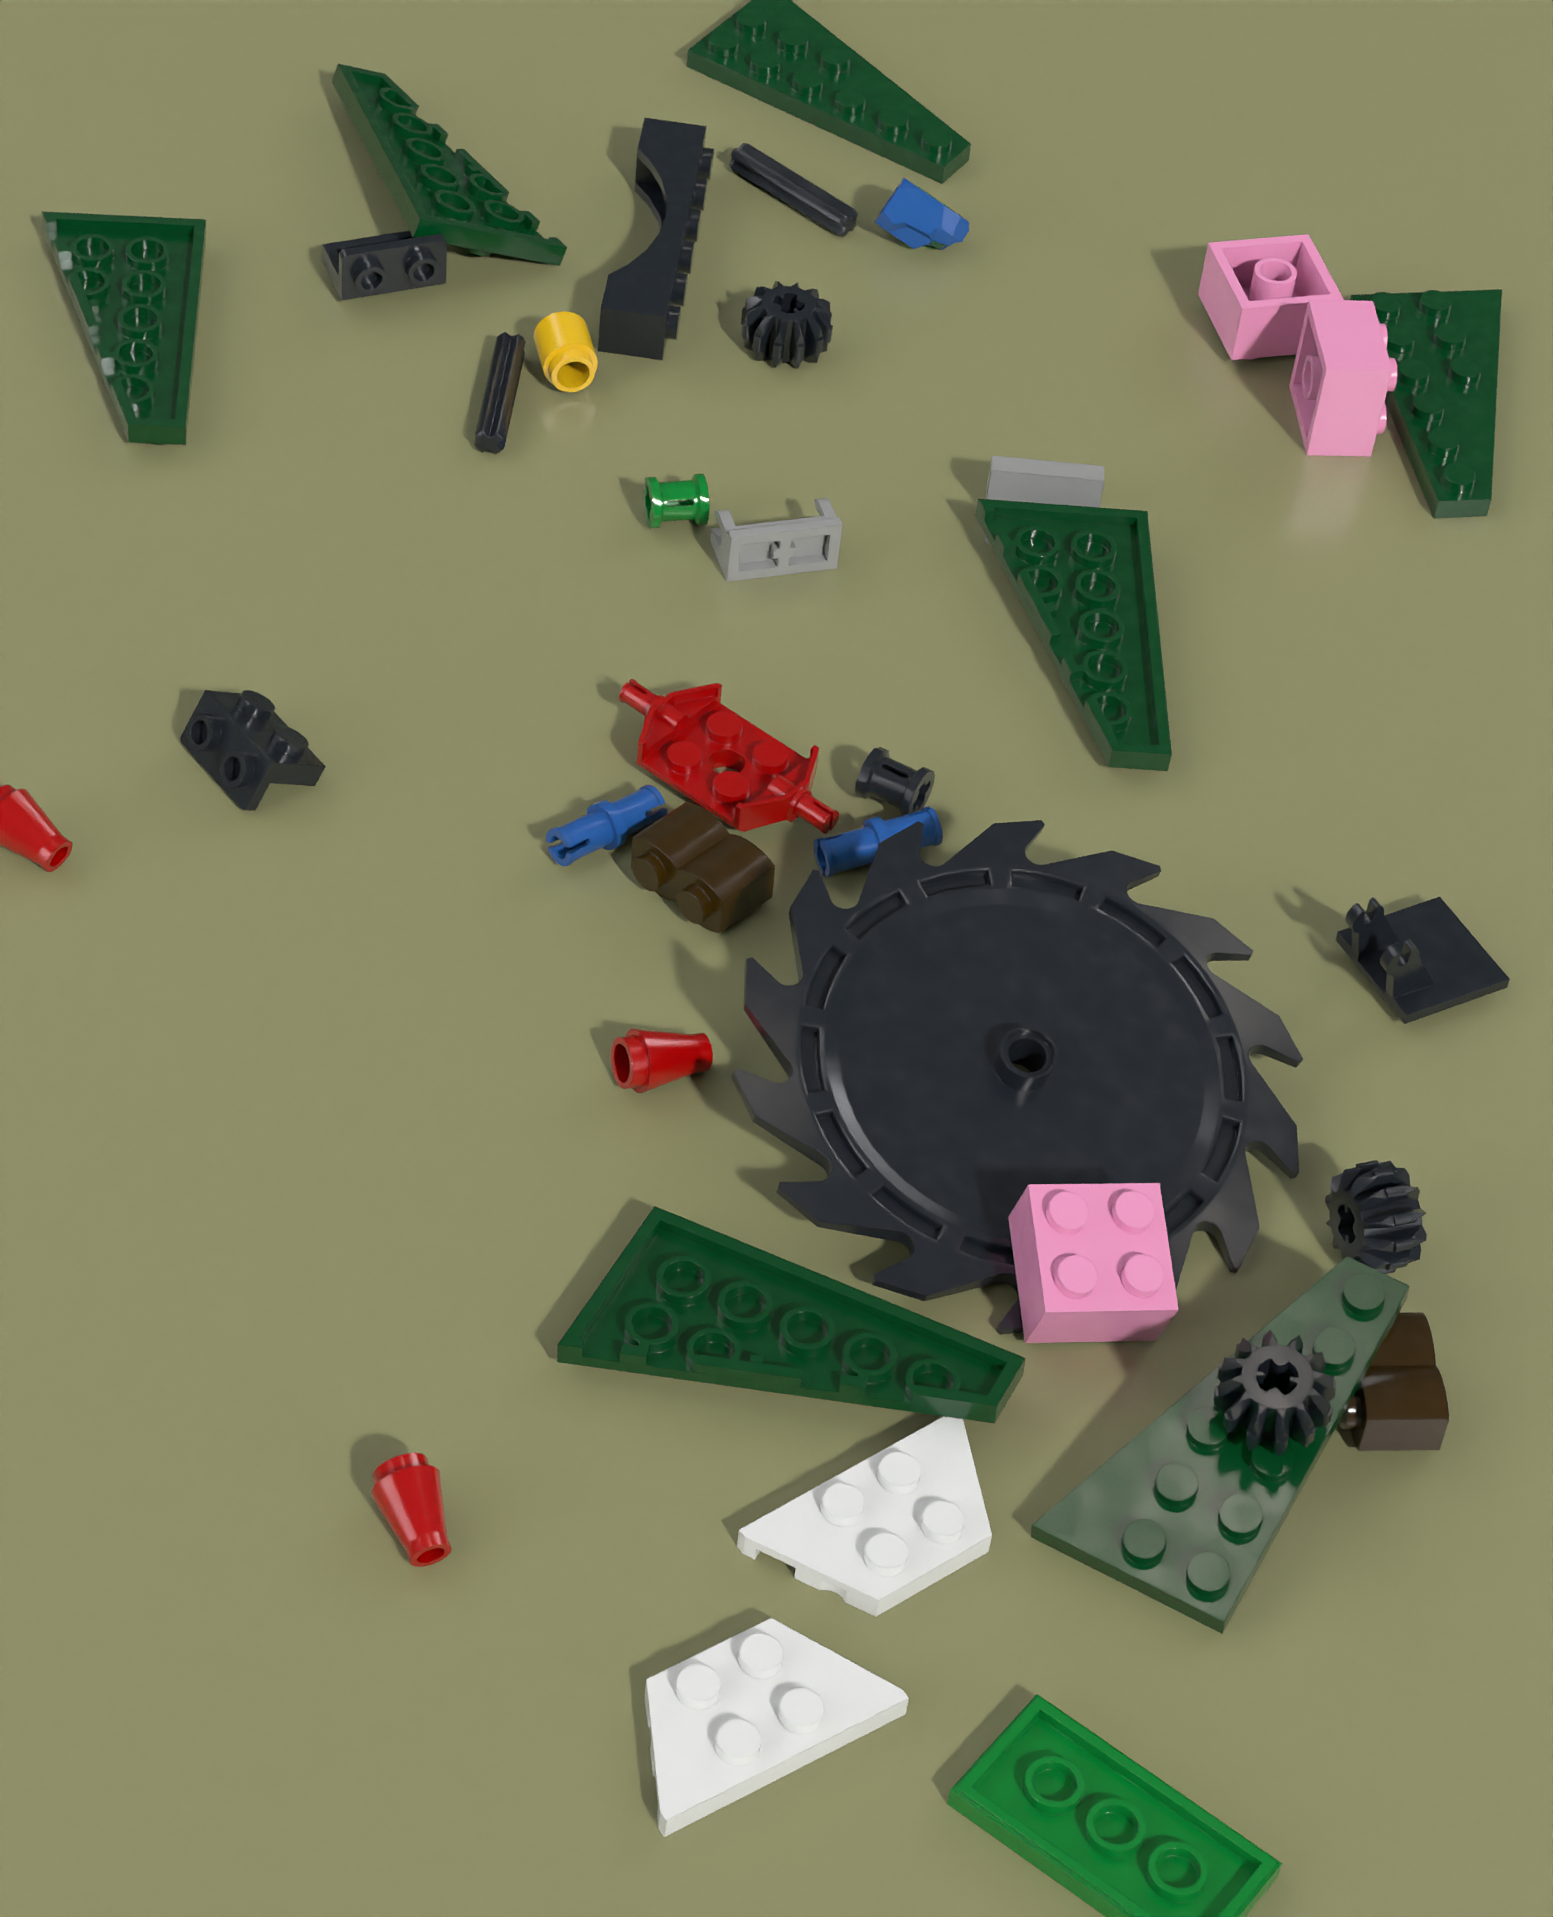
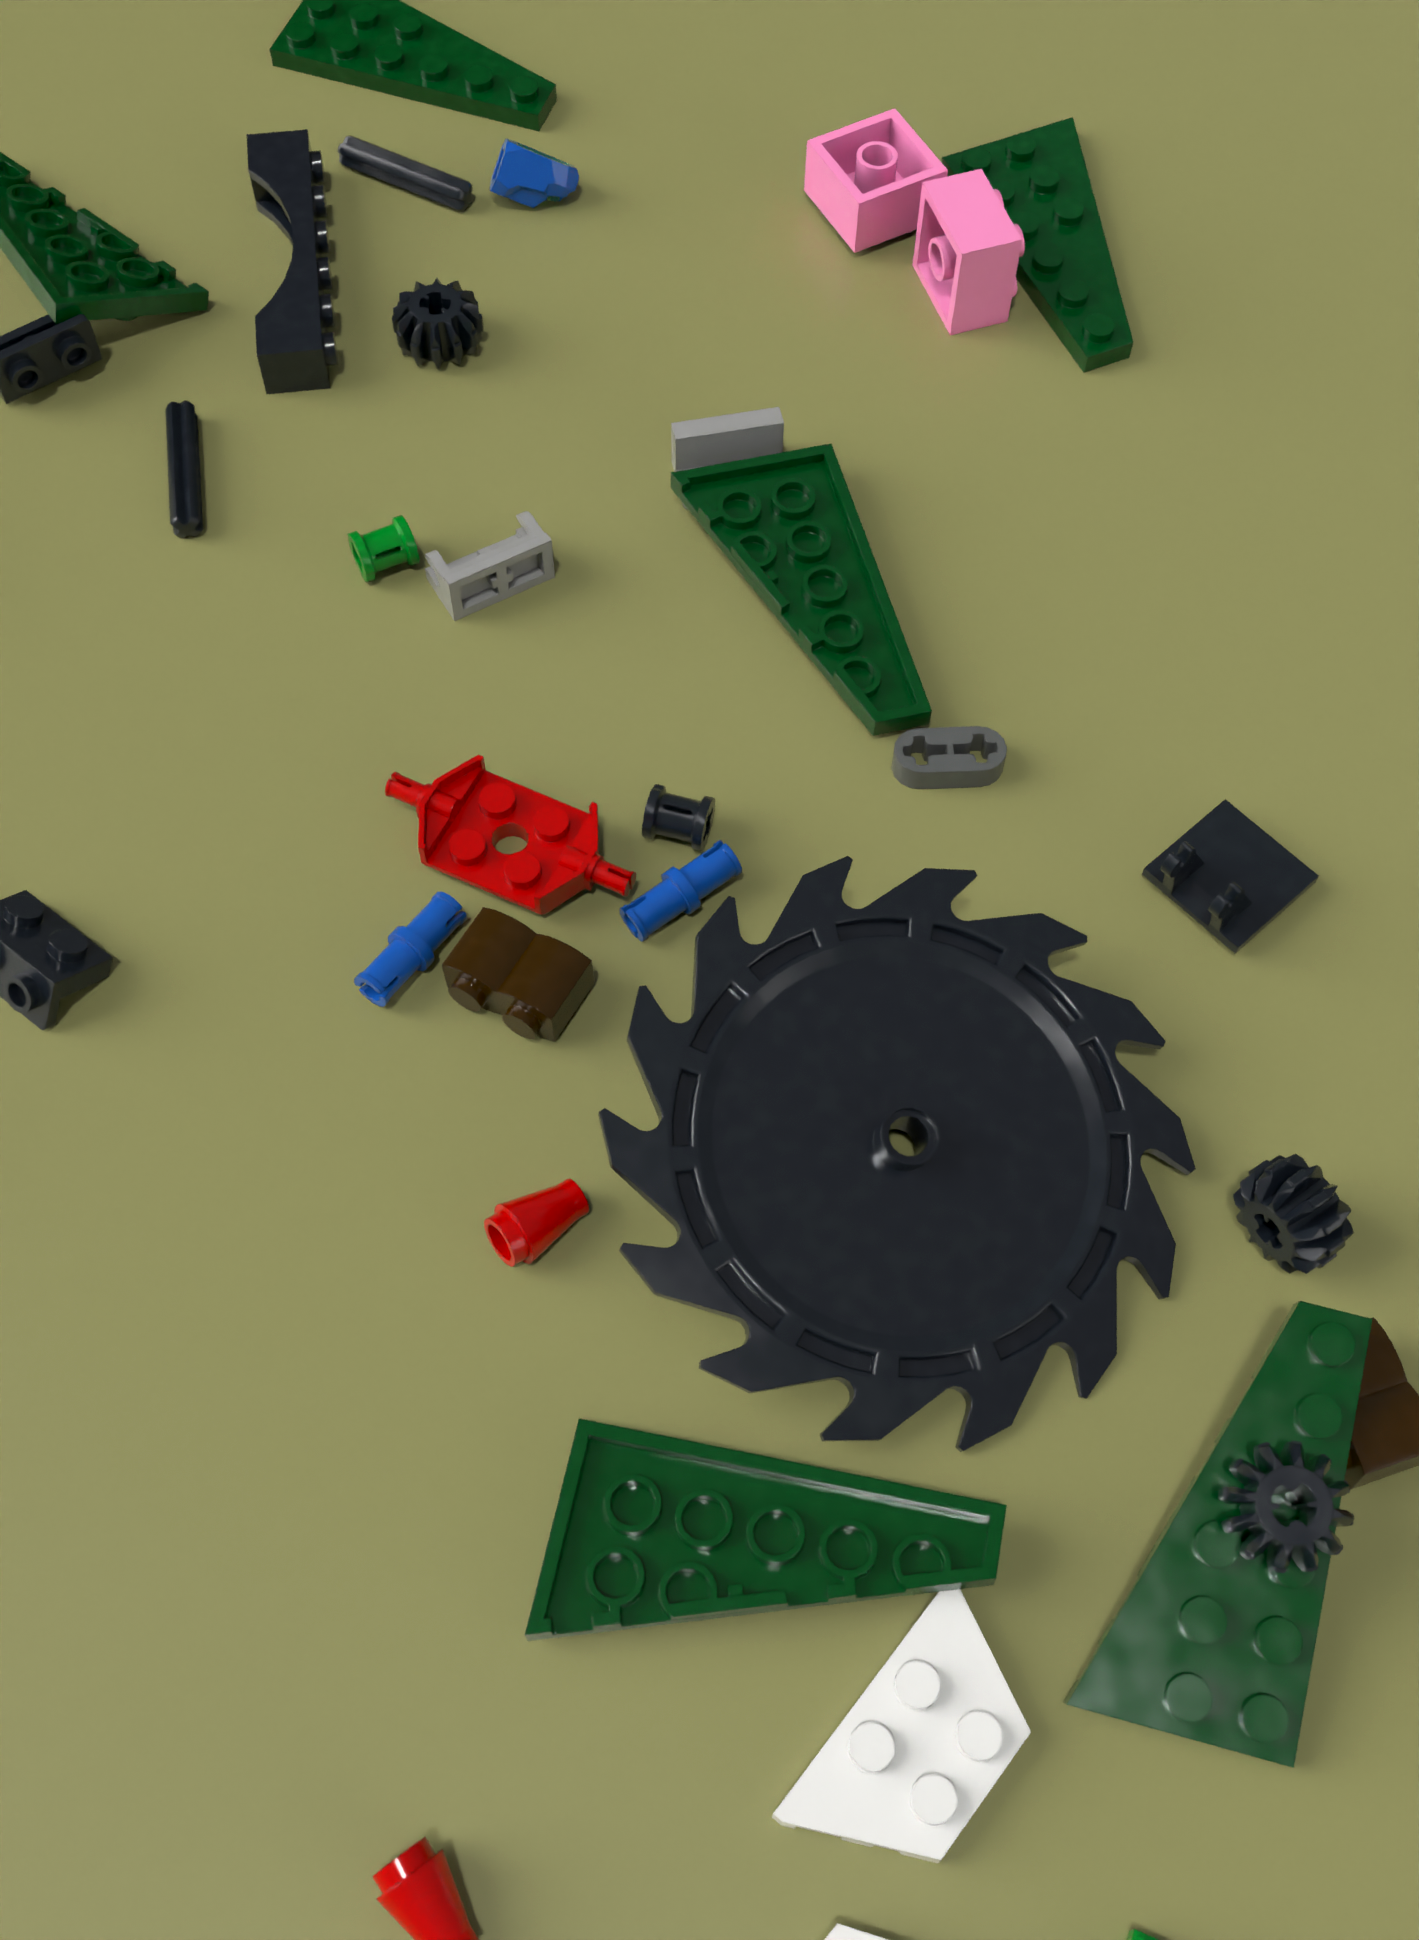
camera: 10 degrees left, 15 degrees up
(566, 351) = (235, 407): yellow brick -> none
(1092, 1262) = (1041, 1365): bright pink brick -> none
(1177, 801) = (949, 757): none -> dark grey beam

